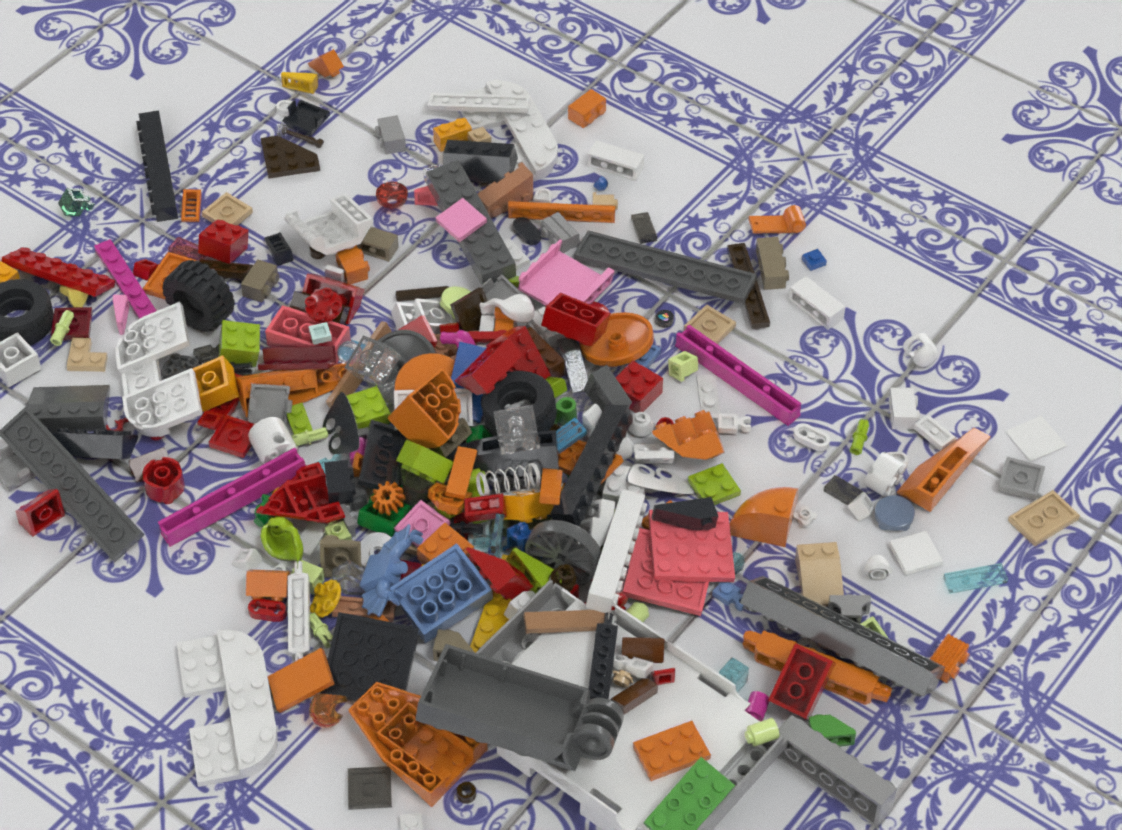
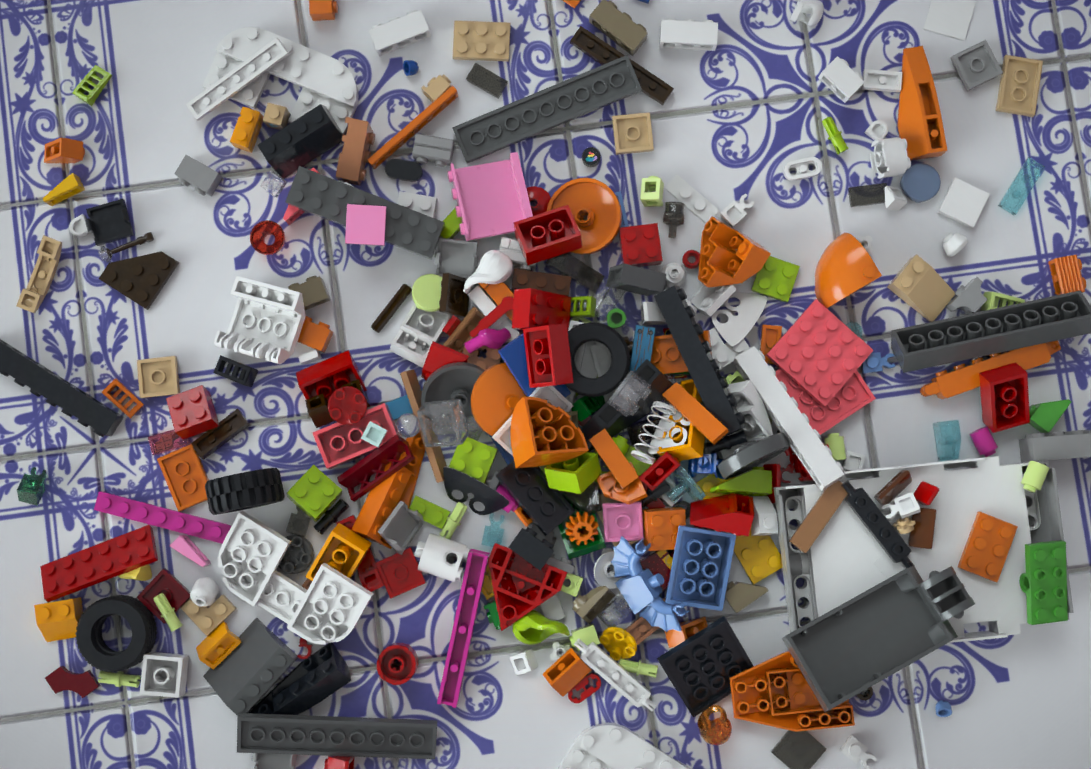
camera: 40 degrees left, 35 degrees up
(65, 376) = (217, 646): none -> light orange panel
(98, 338) = (204, 592): none -> white head
(137, 464) = (368, 656): slope -> none
(144, 269) = (157, 489): red slope -> none
(231, 112) = (42, 275): none -> tan slope
(260, 281) = (260, 418): dark tan brick -> none
(300, 680) = (674, 723): orange tile -> none
(384, 49) = (87, 80): none -> lime slope
(543, 196) = (380, 123): white tile -> none
(566, 574) = (763, 475): dark brown piece -> none
(666, 205) = (481, 41): none -> tan plate
(682, 392) = (673, 216): none -> clear smoke piece
(689, 514) = (810, 327): black slope -> none
(739, 375) = (697, 161): dark pink tile -> none

